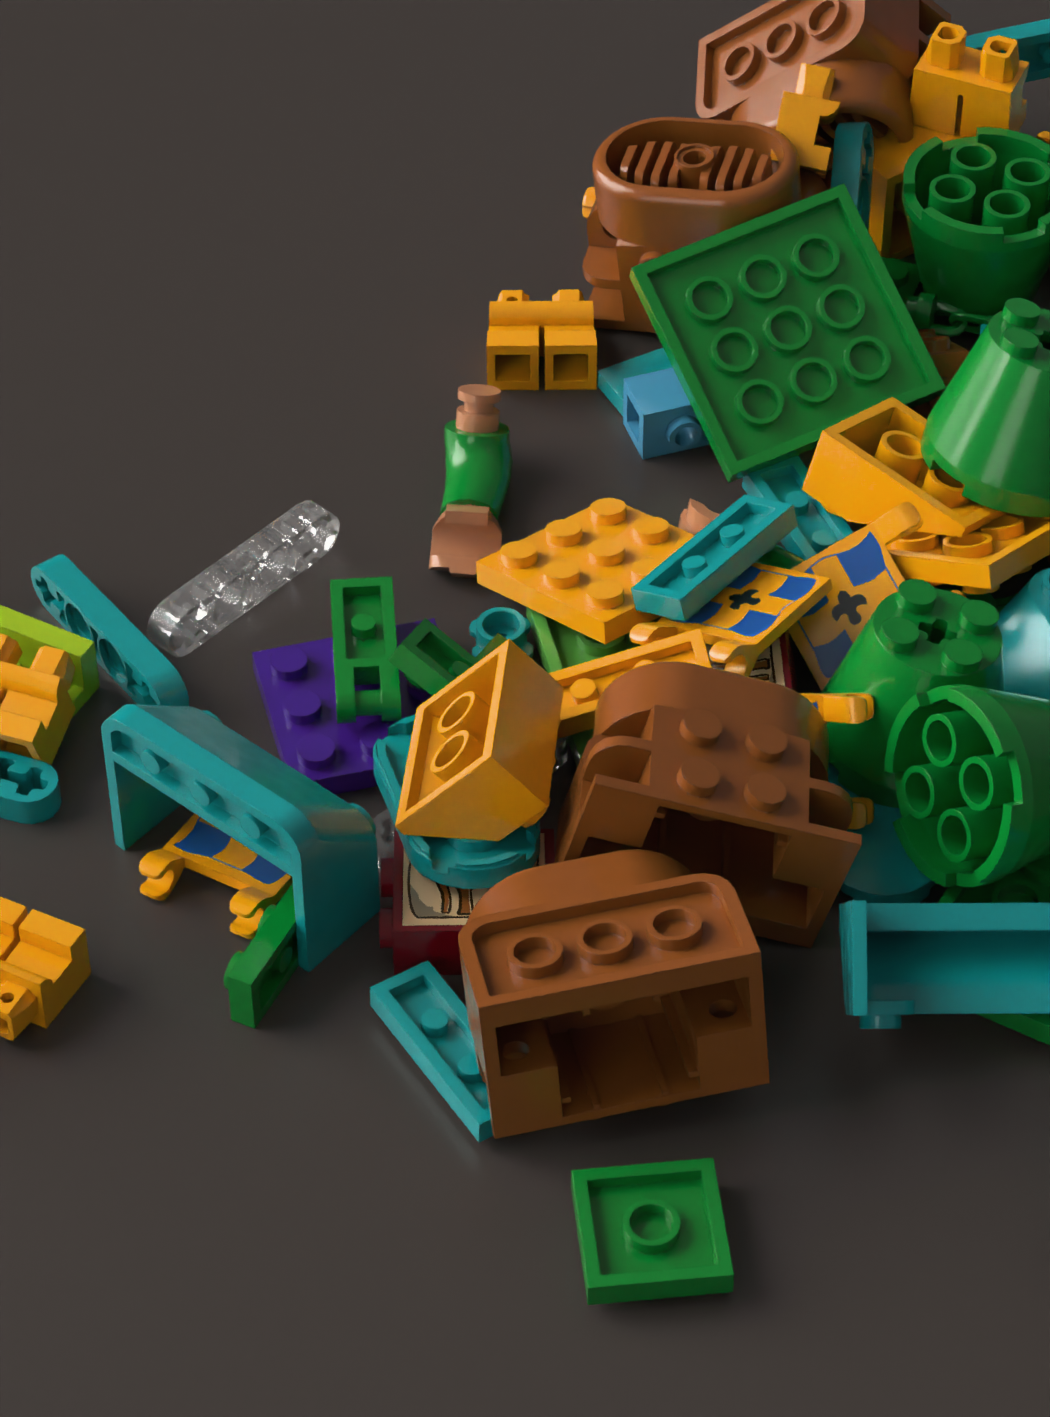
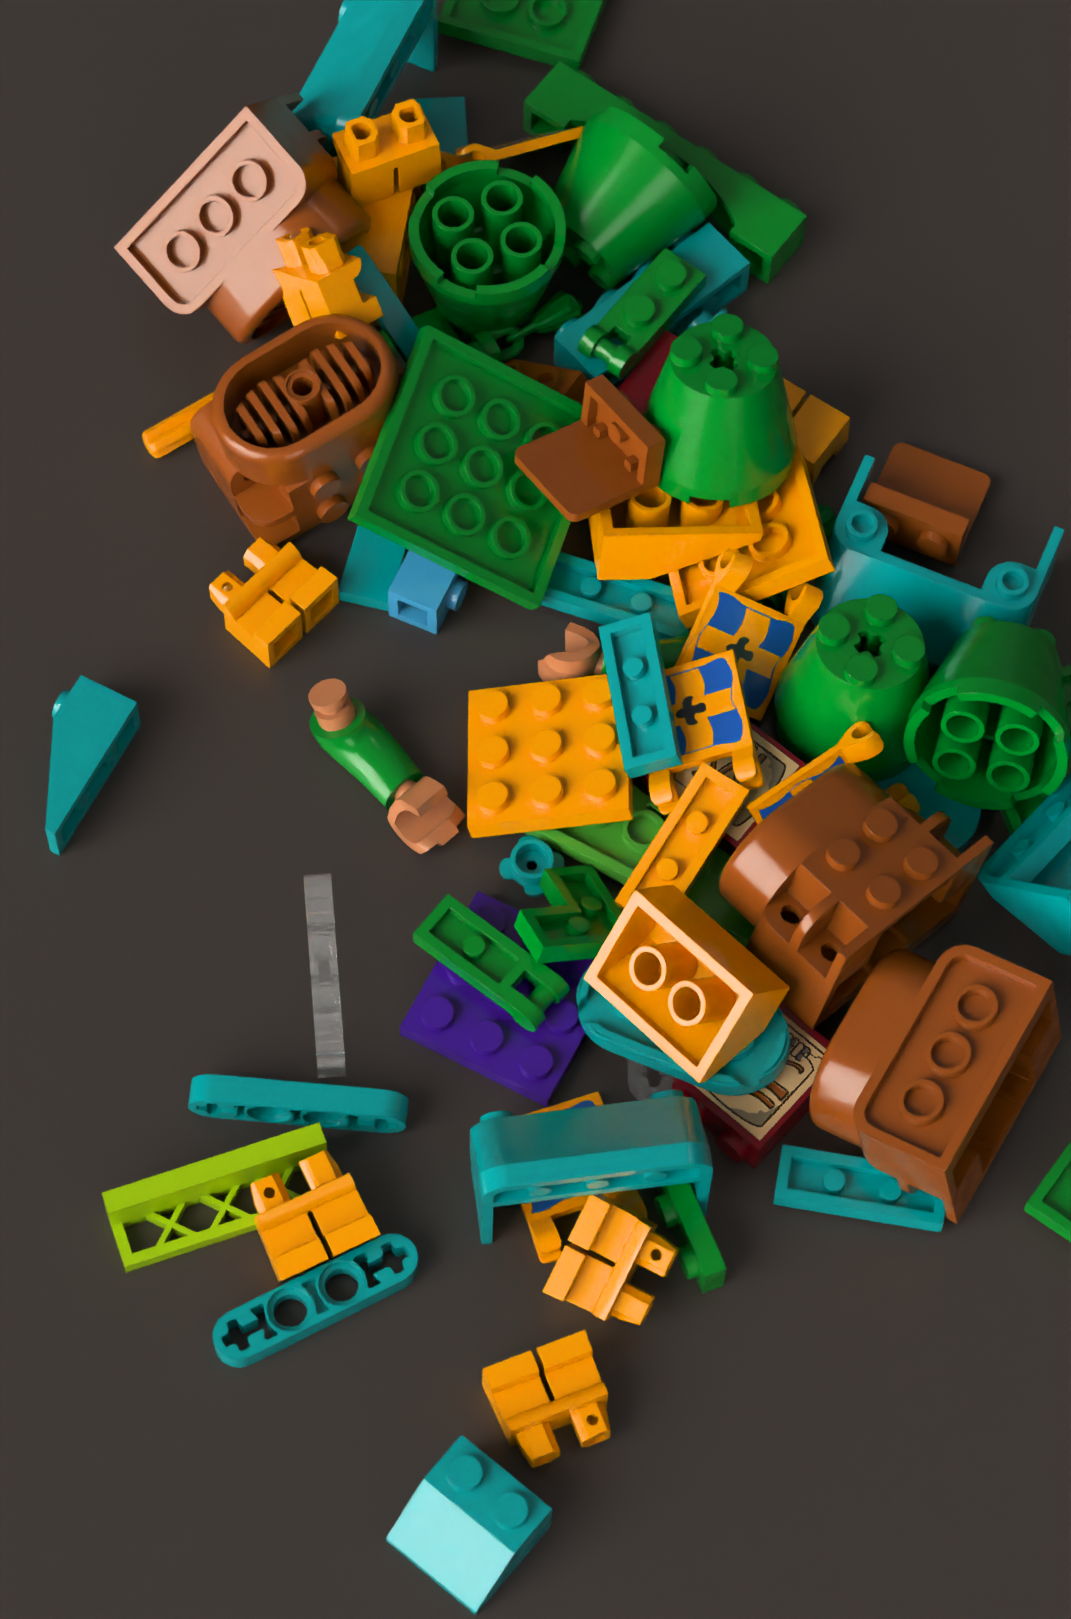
camera: 50 degrees left, 20 degrees up
(174, 905) = (598, 1283): none -> light orange hips
(265, 328) = (87, 742): none -> teal slope
(882, 385) = (598, 458): none -> dark orange bracket

